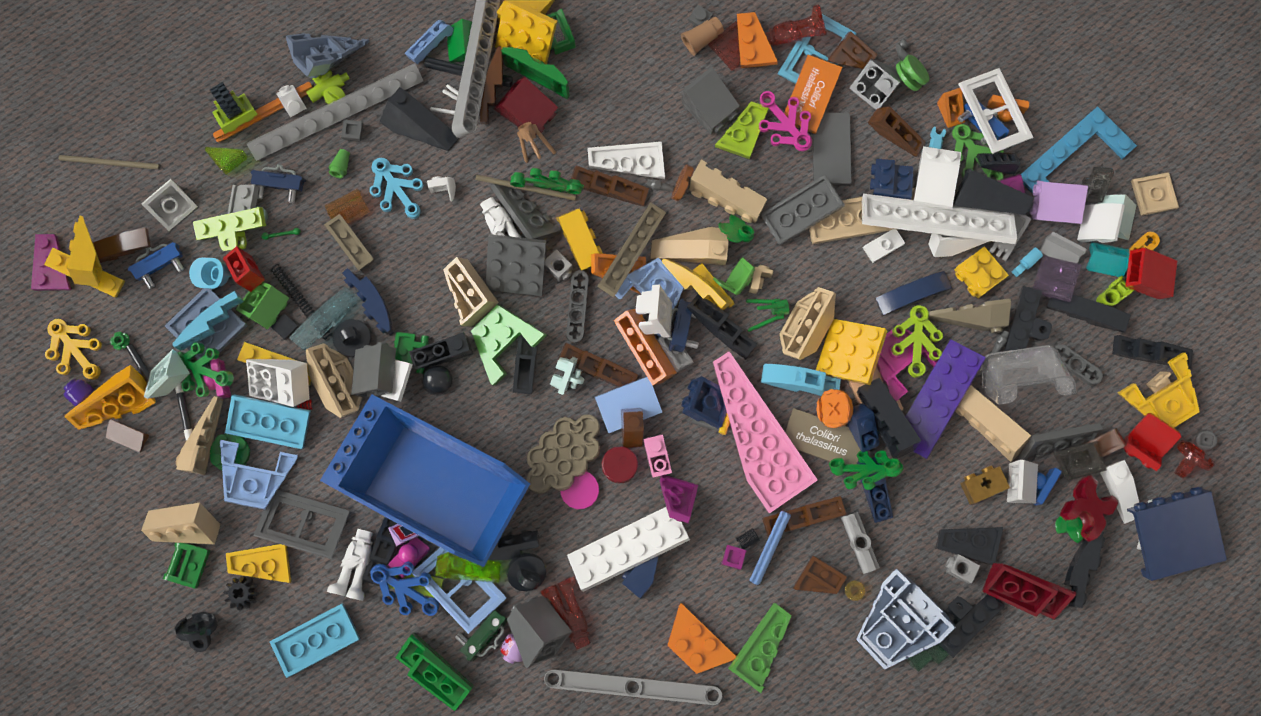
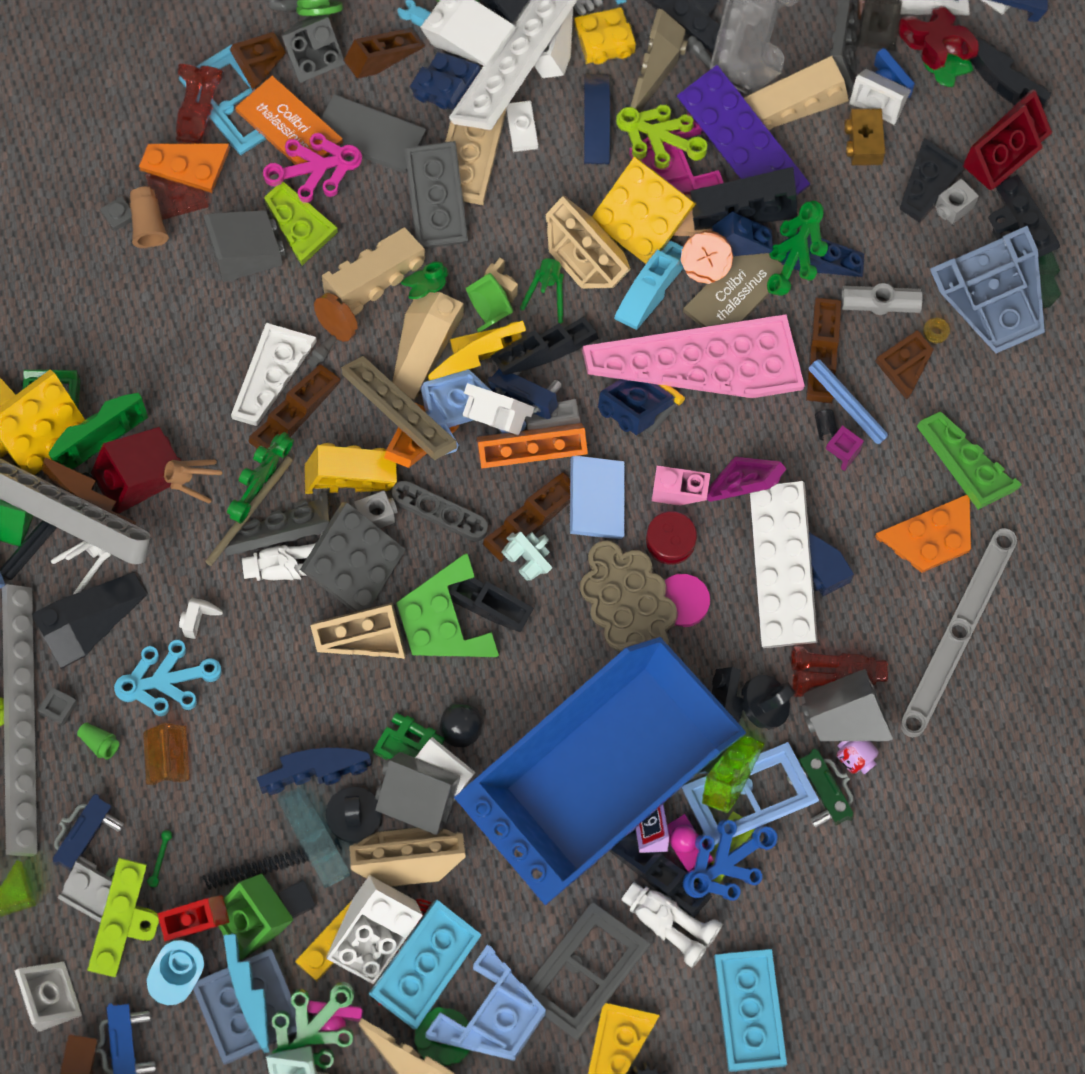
camera: 70 degrees left, 10 degrees down
(349, 242) = (218, 765): dark tan plate -> none
(433, 672) = (850, 868): green slope -> none
(441, 351) = (427, 698): black slope -> none
(632, 427) = (629, 500): reddish brown slope -> none

